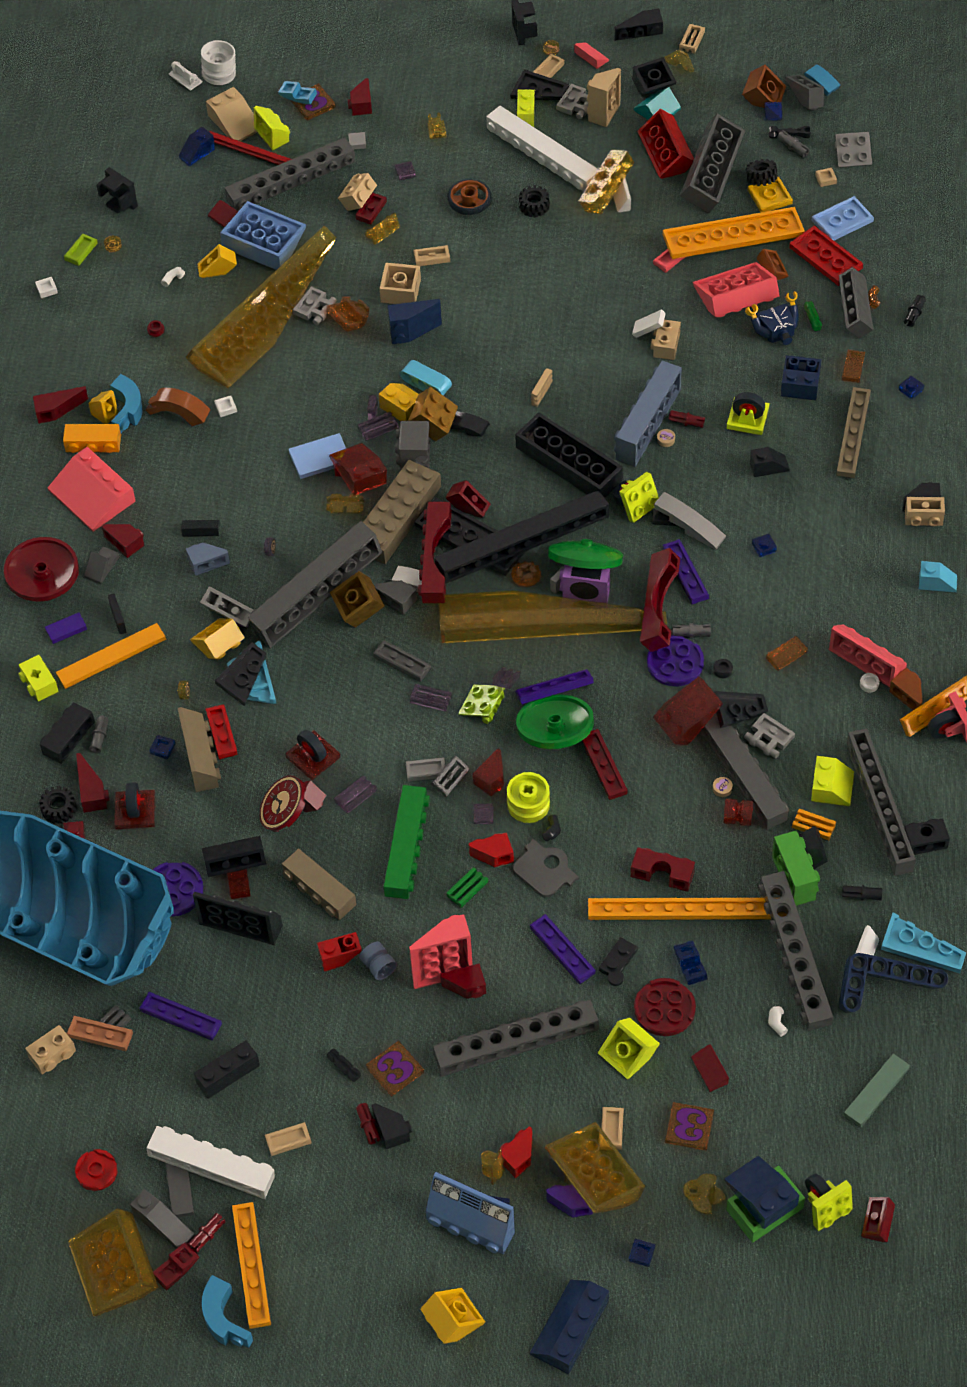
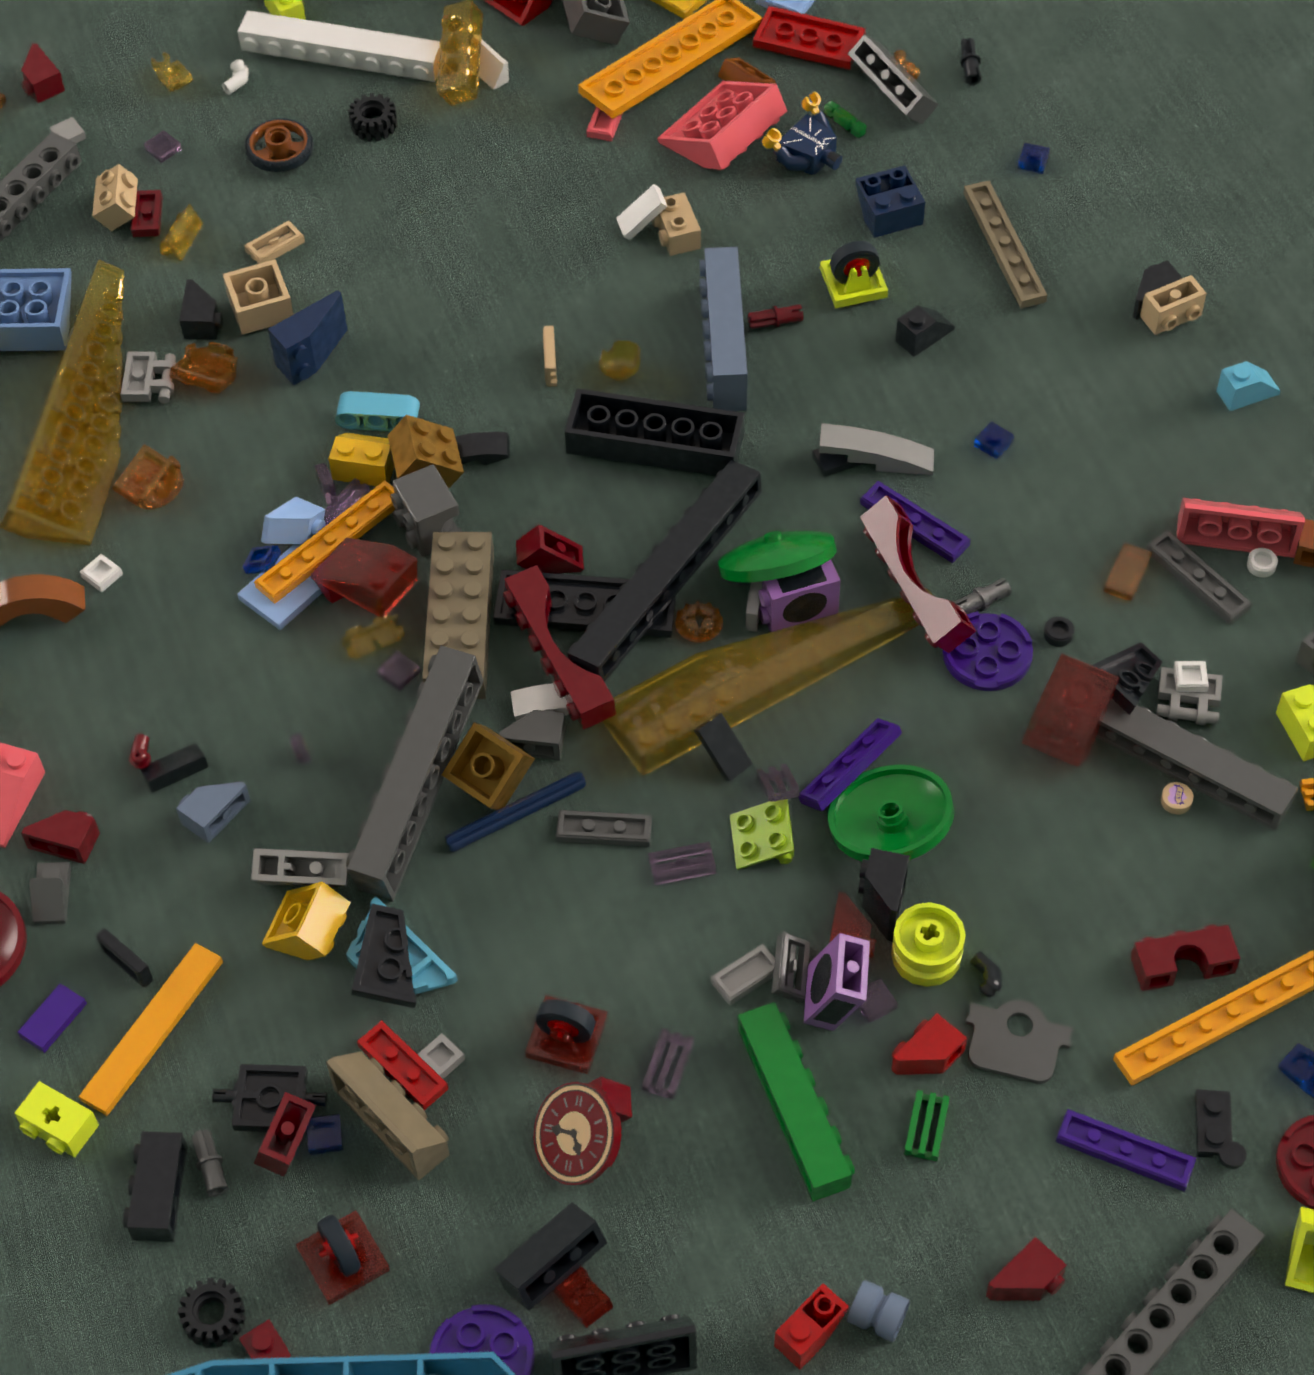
camera: 30 degrees left, 0 degrees up
(91, 787) = (250, 1255): dark red slope -> none
(140, 736) = (284, 1134): none -> dark red slope
(146, 716) = (260, 1094): none -> black plate
(184, 690) = (303, 1028): clear yellow tile -> none
(186, 513) = (139, 756): none -> dark red arm
(243, 736) = (442, 1055): none -> light grey plate
(280, 365) = (150, 479): none -> clear orange slope
(312, 435) = (261, 559): none -> clear blue tile
(318, 884) = (707, 1234): dark tan brick -> none
(339, 422) = (293, 522): none -> light blue slope
(345, 525) = (398, 670): none -> tile
(361, 630) = (515, 811): none -> dark blue axle
(362, 280) = (199, 314): none -> black slope
(369, 437) = (307, 557): none -> light orange tile
(441, 950) = (995, 1239): coral slope -> none
(463, 791) = (836, 982): none -> medium lavender brick
(474, 145) = (239, 77): none -> white arm
(490, 645) = (723, 747): none -> black tile
(525, 754) = (883, 888): none -> black slope
(579, 408) = (621, 361): none -> clear yellow hair
(604, 765) = (1000, 846): dark red plate -> none
(636, 496) = (782, 445): neon yellow plate -> none
(666, 438) = (763, 353): tan tile -> none
(738, 812) = (1229, 823): clear red wheel -> none
(774, 724) = (1191, 676): none -> white tile
(826, 674) = (1199, 577): none -> dark grey tile
(853, 366) = (941, 161): clear orange tile -> none

